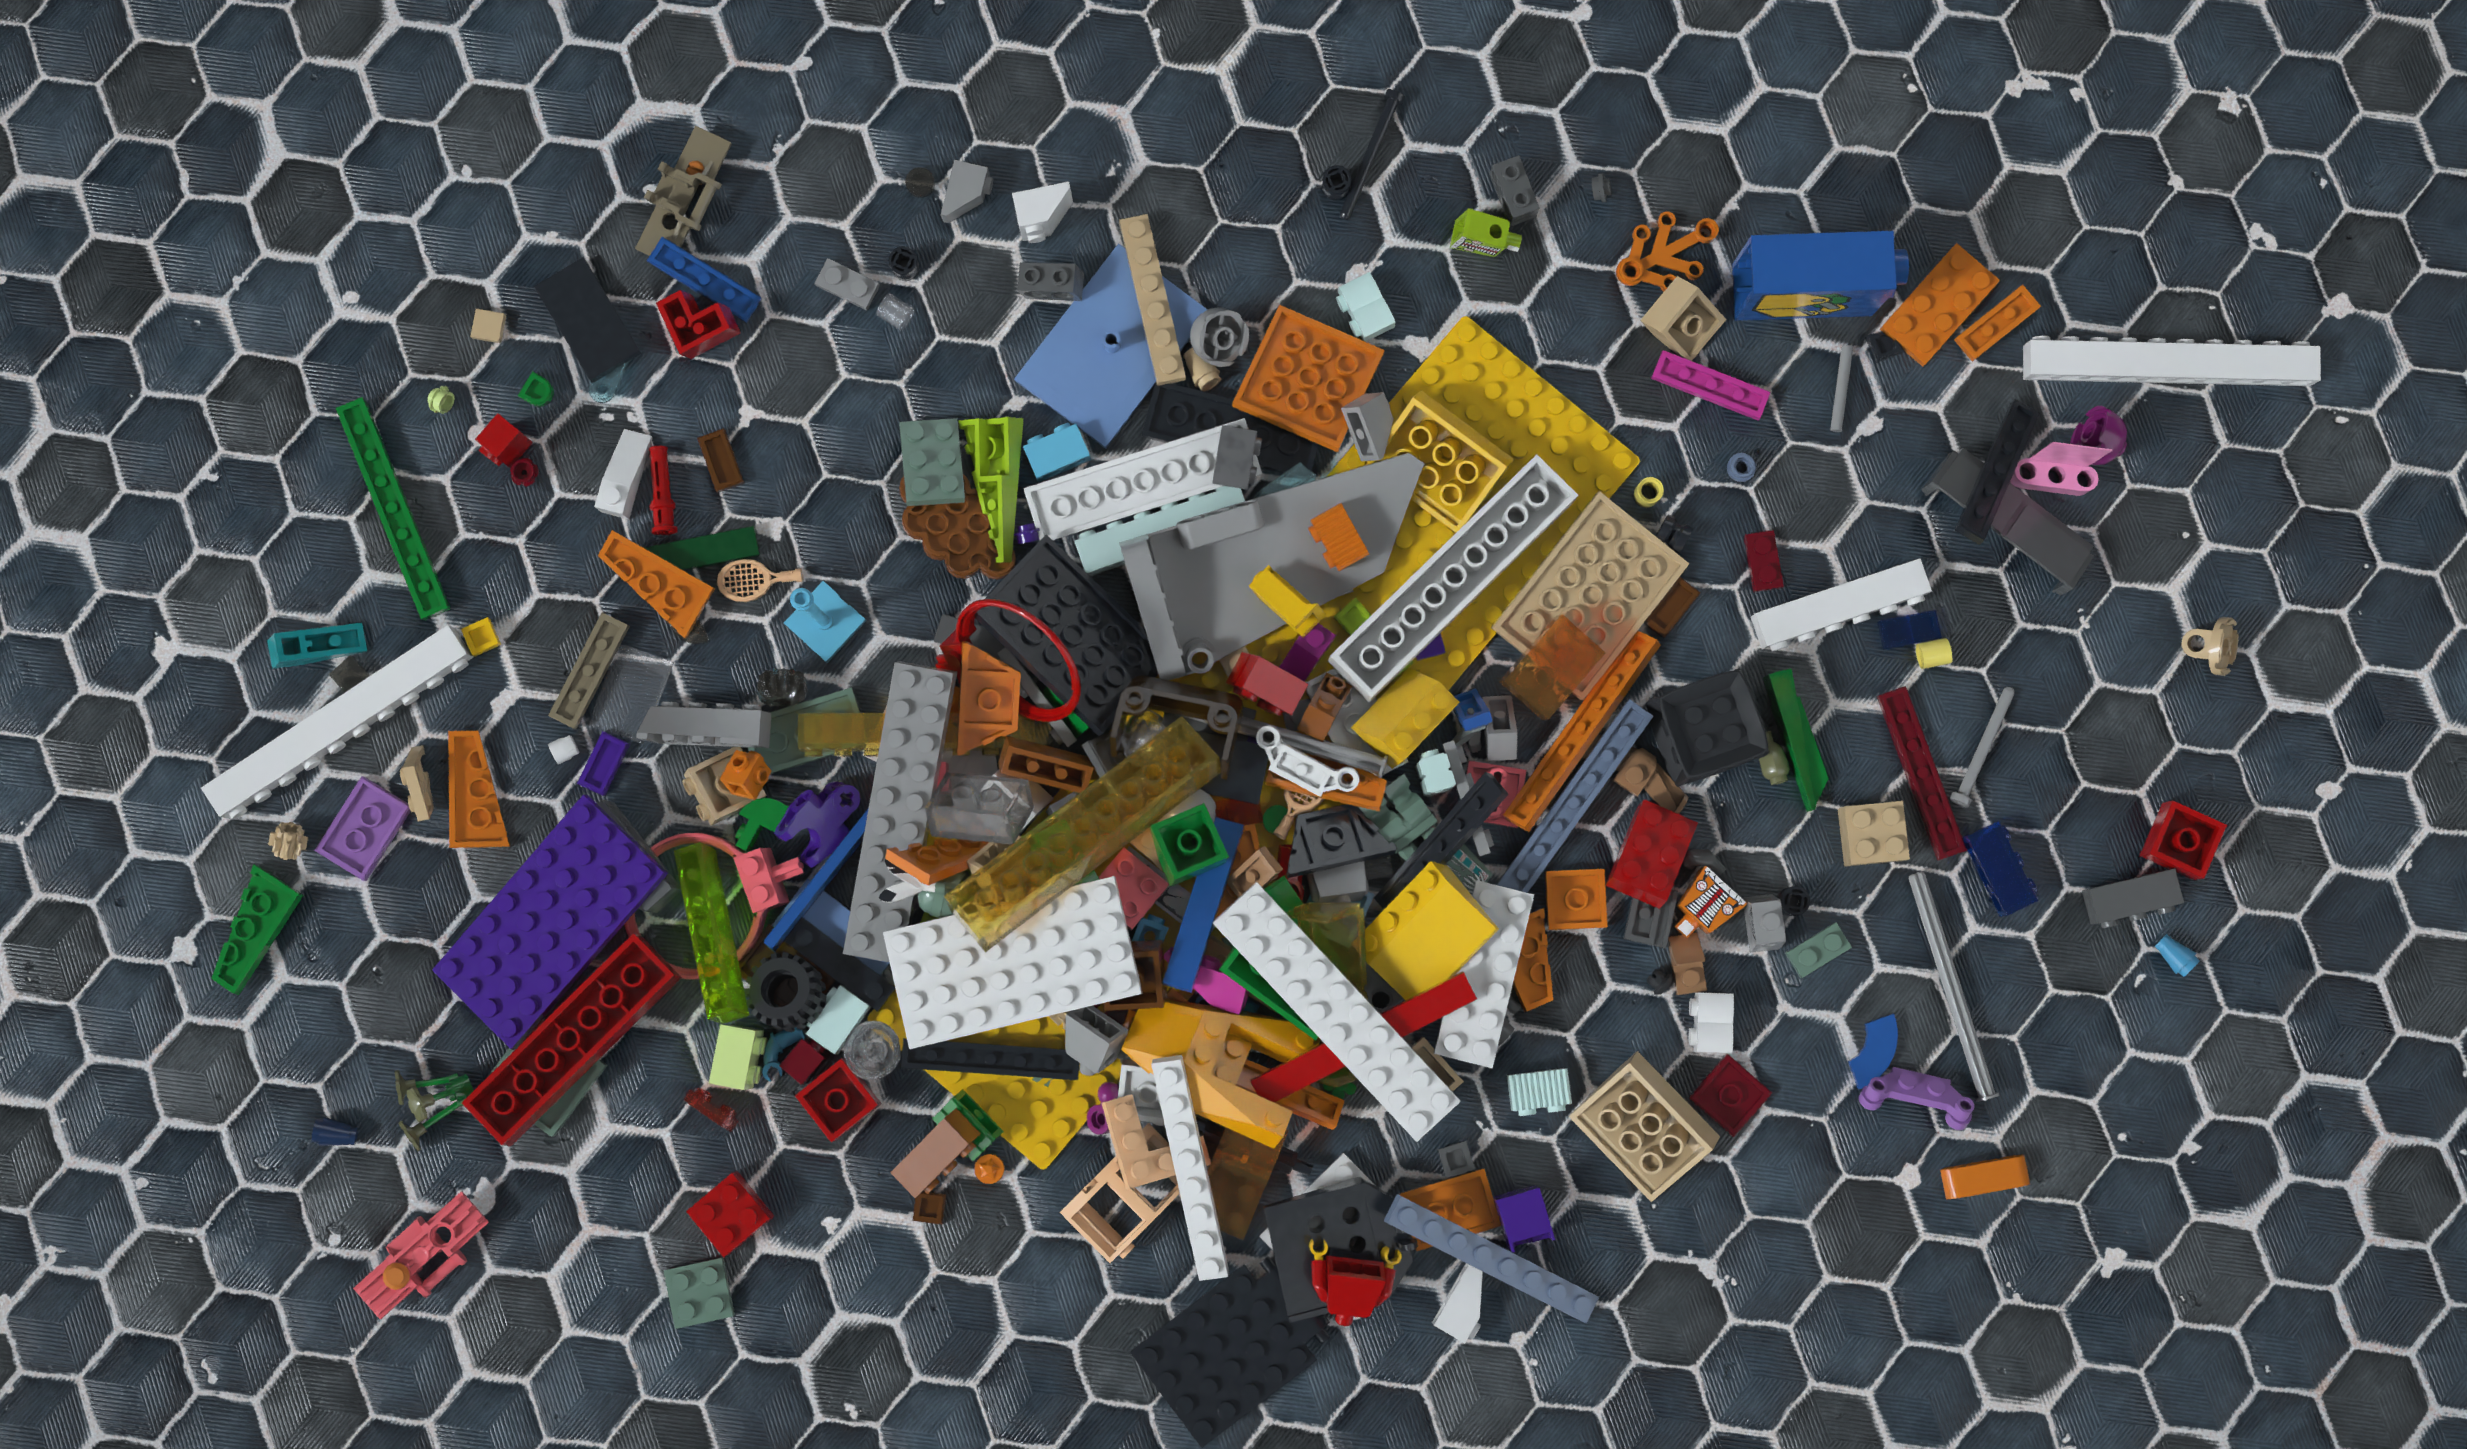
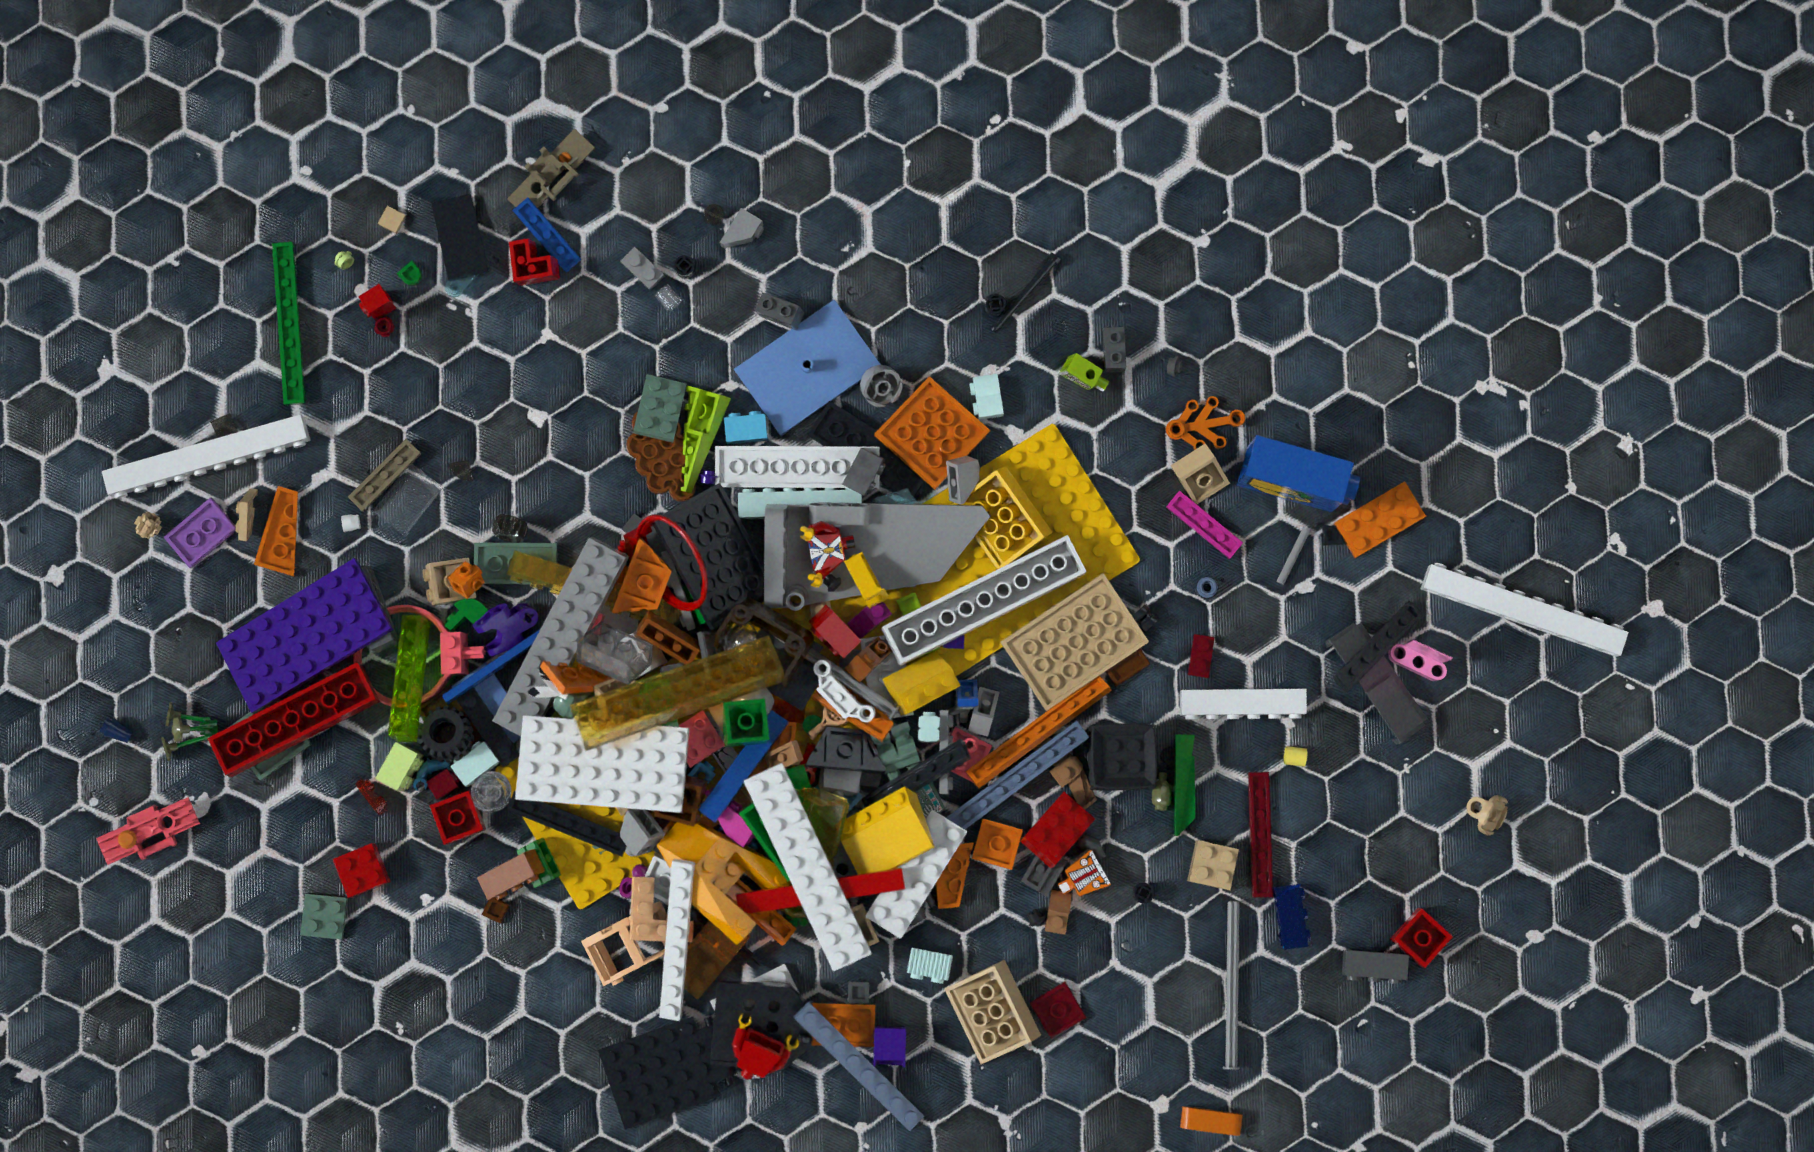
camera: 20 degrees right, 0 degrees up
(261, 917) = (112, 572): green wing -> none
(315, 645) = (208, 399): teal slope -> none
(481, 636) = (319, 429): yellow plate -> none
(603, 763) = (374, 540): dark purple tile -> none
(623, 475) = (450, 350): white slope -> none
(662, 503) = (470, 378): red pin -> none
(666, 587) = (451, 432): orange wing -> none
(706, 725) = (450, 538): light grey wedge -> none
(710, 549) = (484, 418): dark green tile -> none
(721, 460) = (518, 361): reddish brown tile -> none
(783, 576) = (535, 453): light nougat piece -> none
(823, 620) = (552, 492): medium azure tile -> none
(989, 1168) = (544, 896): orange tile -> none
(1041, 210) = (788, 261): white slope -> none
(1152, 300) = (844, 345): tan plate -> none
(1203, 374) = (861, 406): tan cone -> none
(1218, 577) = (825, 549): none -> torso
(1241, 620) = (832, 582): none -> black piece
(1338, 537) = (915, 548): orange brick -> none
(1461, 1307) = (828, 1094): white slope -> none
(1552, 667) = (1031, 682): clear orange brick -> none
(1655, 484) = (1142, 578): light yellow beam -> none
(1712, 1022) = (1062, 957): white brick -> none
(1764, 923) = (1118, 901): light grey torso -> none
(1818, 950) = (1150, 931): sand green plate -> none
(1877, 1050) = (1167, 1012): blue tile -> none
(1909, 630) = (1284, 734): clear blue tile -> none
(1921, 1090) = (1187, 1048): medium lavender plate -> none
(1962, 796) = (1281, 860): light grey bar -> none
(1997, 323) = (1414, 545): orange plate -> none
(2102, 430) = (1458, 645): magenta cylinder -> none
(2178, 956) = (1393, 1016): dark azure cone -> none

